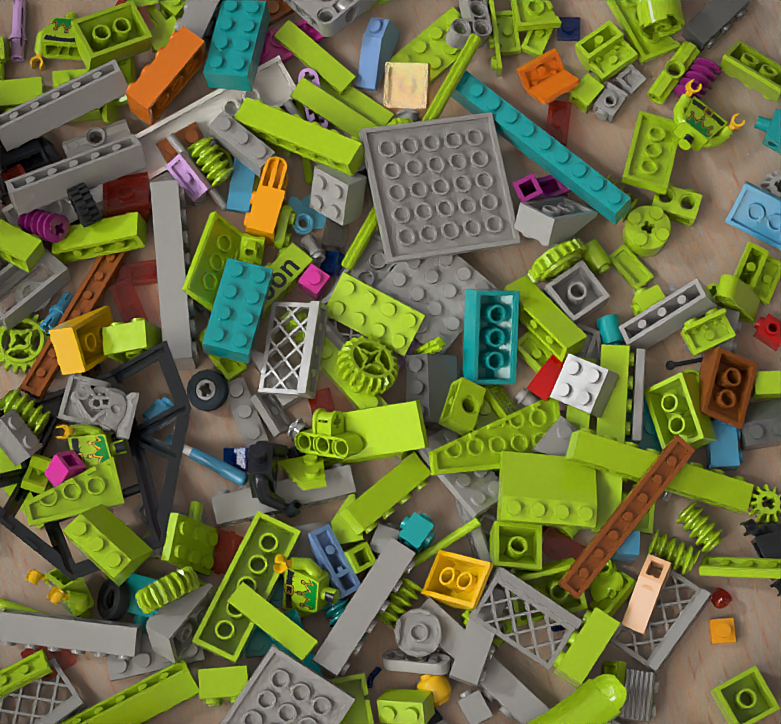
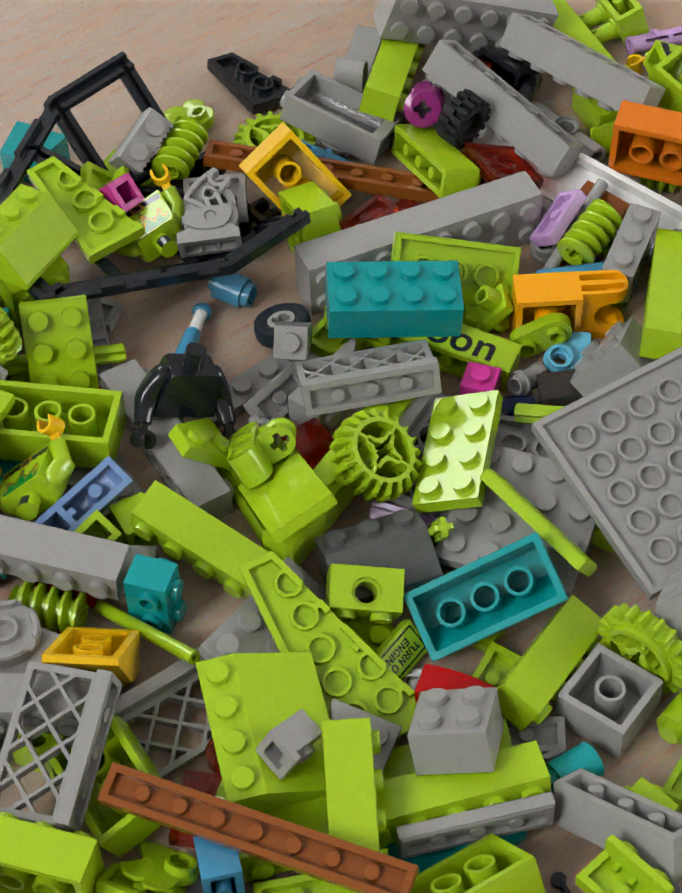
camera: 75 degrees right, 25 degrees down
(240, 387) = (292, 340): none -> light grey brick
(452, 286) = (539, 522): none -> lime tile
(516, 545) = (168, 715): lime slope -> none
(574, 480) = (289, 743): none -> light grey brick

